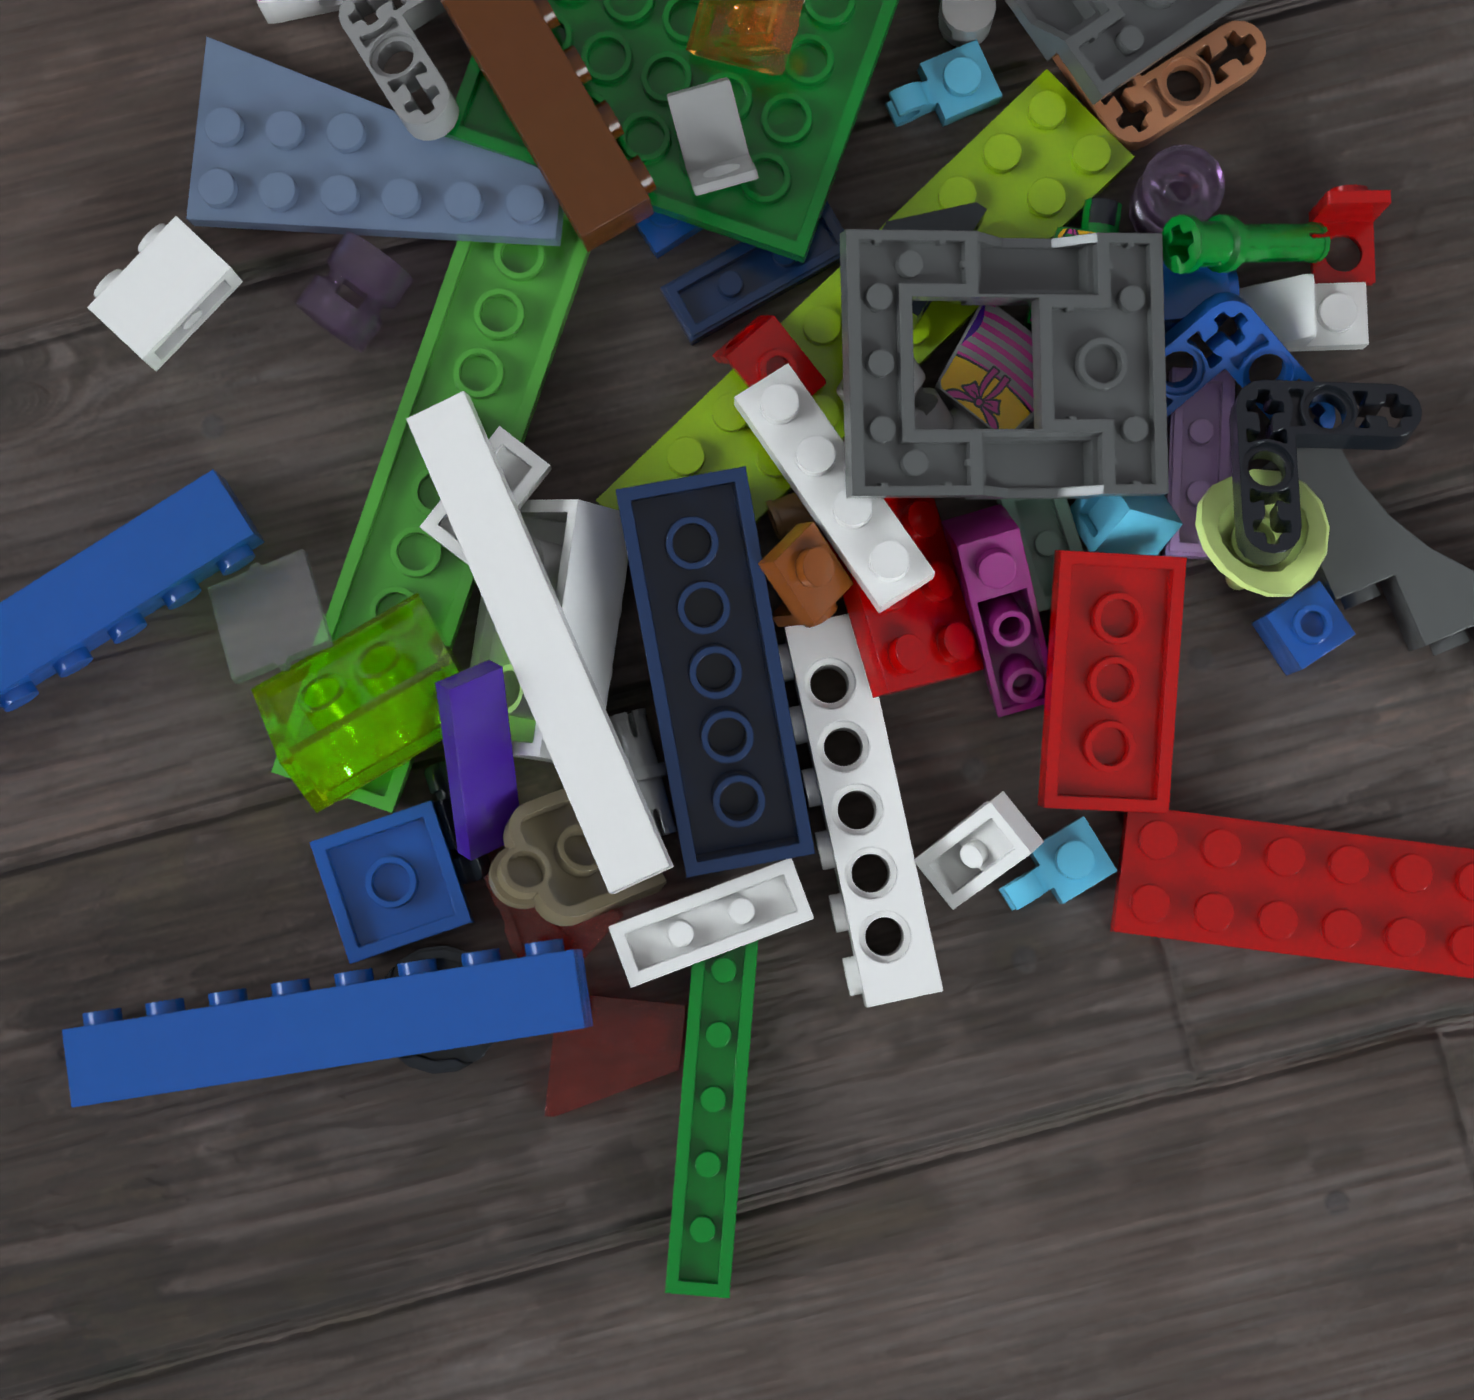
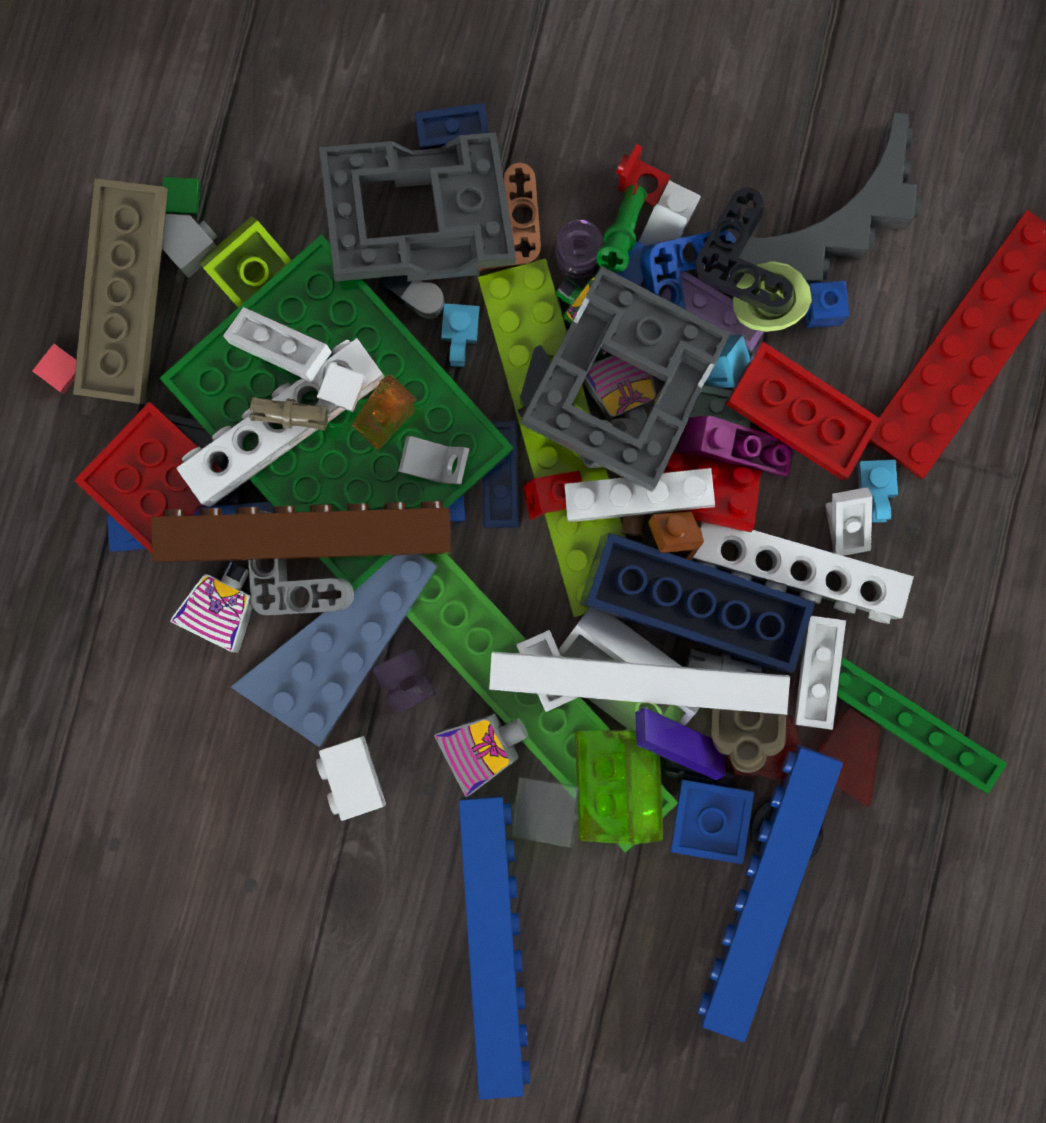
camera: 60 degrees left, 0 degrees up
(309, 463) = (480, 749): none -> torso

